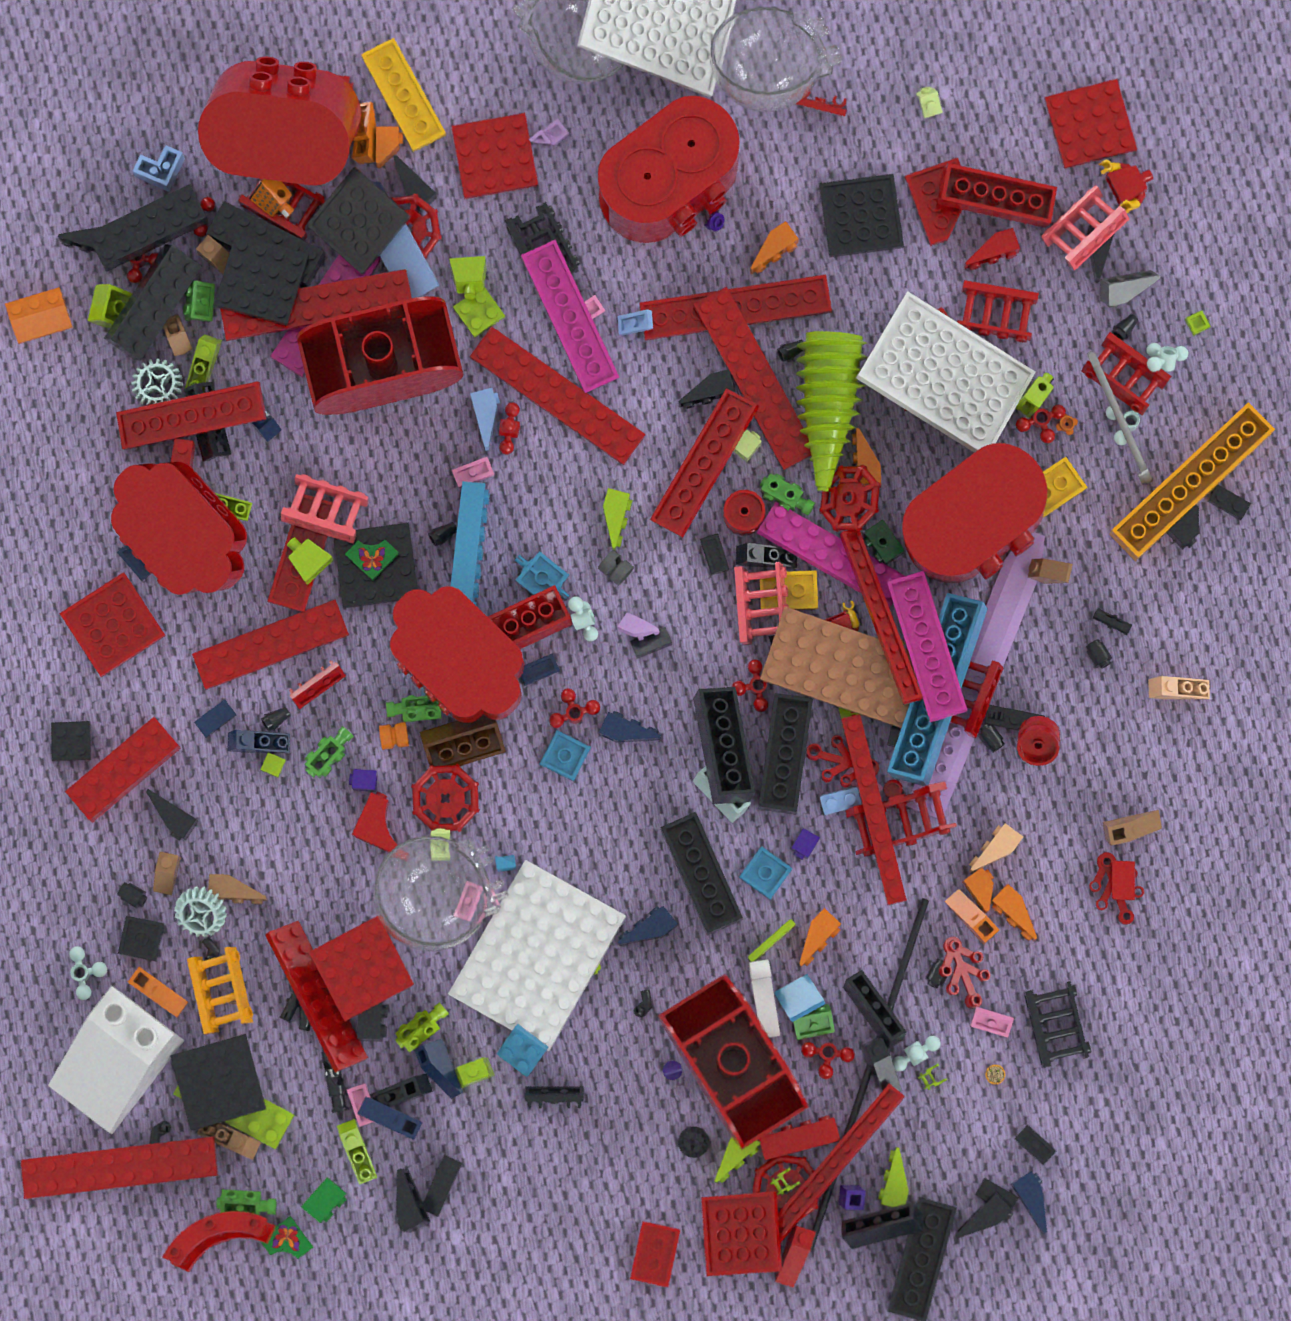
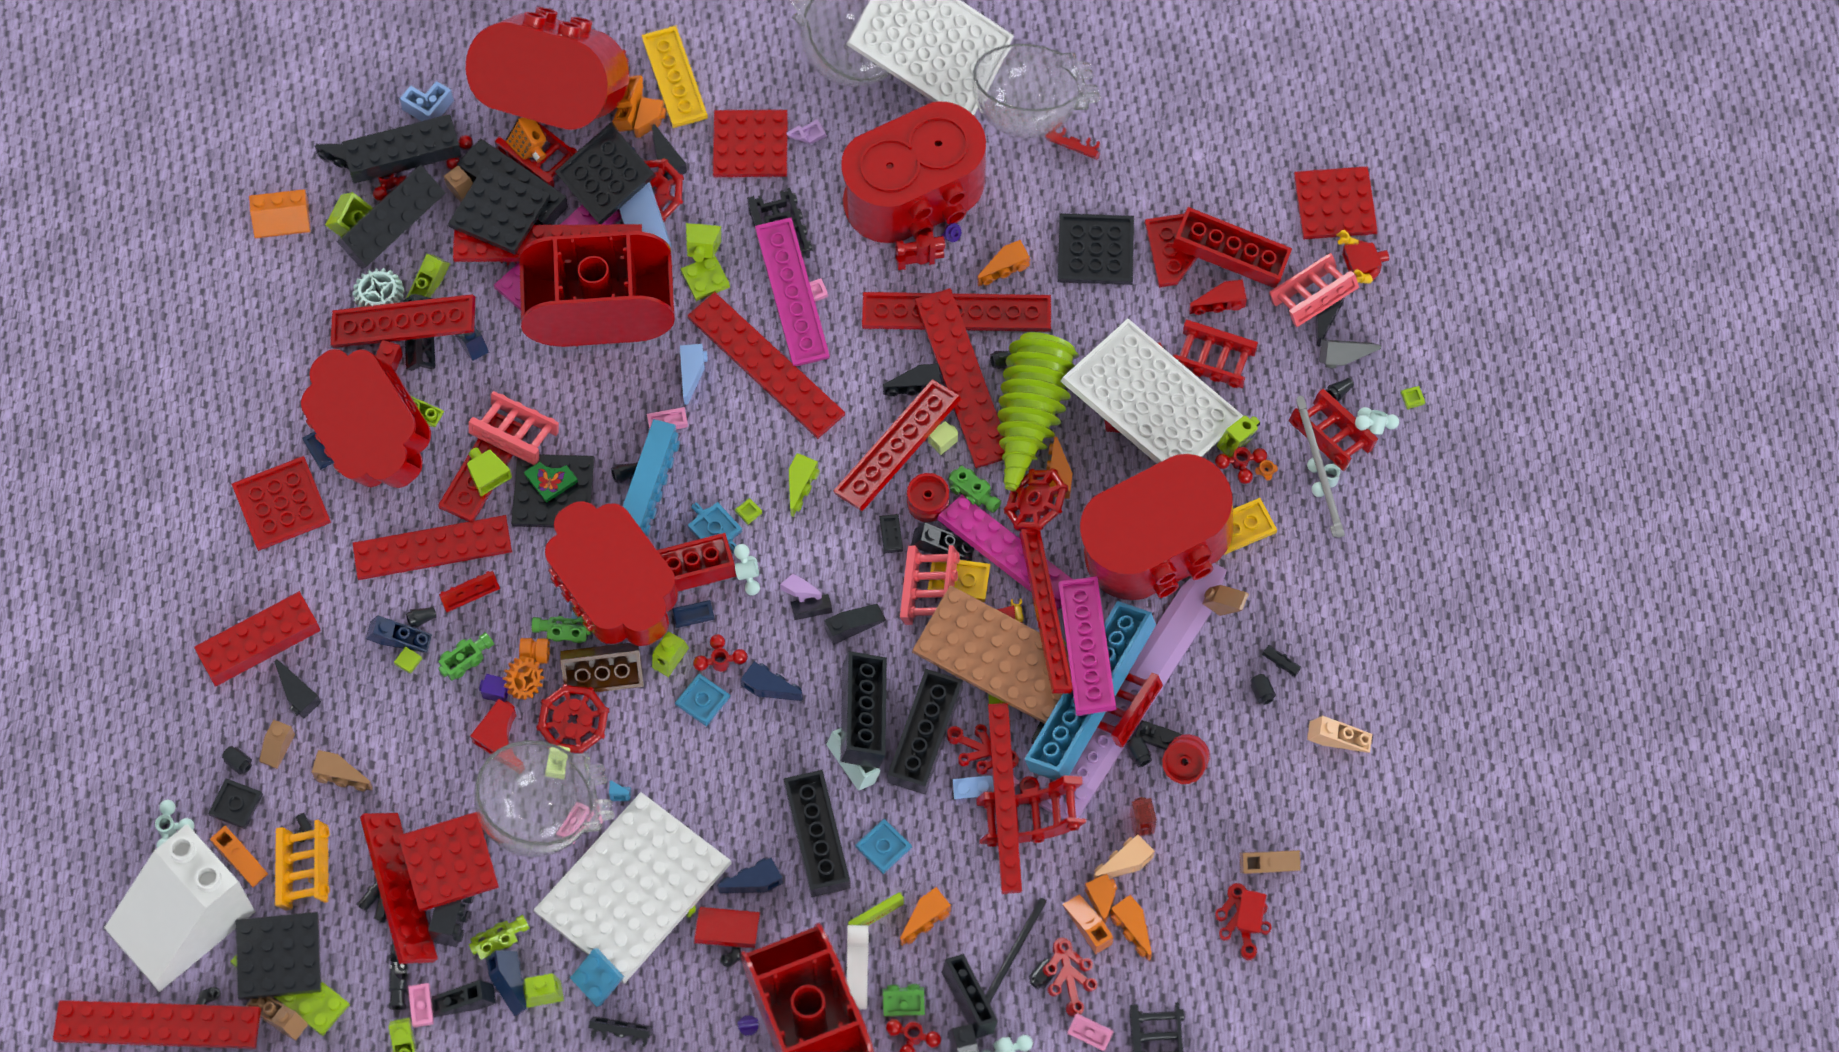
camera: 10 degrees right, 15 degrees down
(71, 741) = (213, 605): black plate -> none
(177, 335) = (407, 252): medium nougat slope -> none
(199, 301) = (436, 225): bright green bracket -> none
(201, 904) = (295, 771): light aqua gear -> none
(215, 718) = (361, 607): dark blue tile -> none
(389, 1118) = (445, 1020): dark blue slope -> none
(390, 767) = (523, 678): none -> orange gear
(509, 428) = (711, 385): red piece -> none
(524, 717) = (670, 651): none -> lime torso
(571, 554) = (748, 511): none -> lime tile
(615, 567) = (787, 525): dark grey wheel -> none
(634, 980) = (727, 927): none -> red tile
(635, 322) = (855, 308): light blue plate -> none
(689, 249) = (921, 251): none -> red hips
(695, 652) = (853, 622): none -> black slope
(760, 703) = (909, 680): red piece -> none
(799, 998) = (894, 973): tile -> none
(804, 844) = (928, 823): dark purple brick -> none
(883, 543) = (1062, 549): dark green brick -> none
(929, 102) = (1180, 159): yellowish green bracket -> none
(1006, 804) = (1143, 816): none -> clear red brick
(1186, 529) = (1370, 584): black slope -> none
(1191, 481) = (1383, 540): light orange brick -> none
(1229, 502) = (1419, 568): black plate -> none

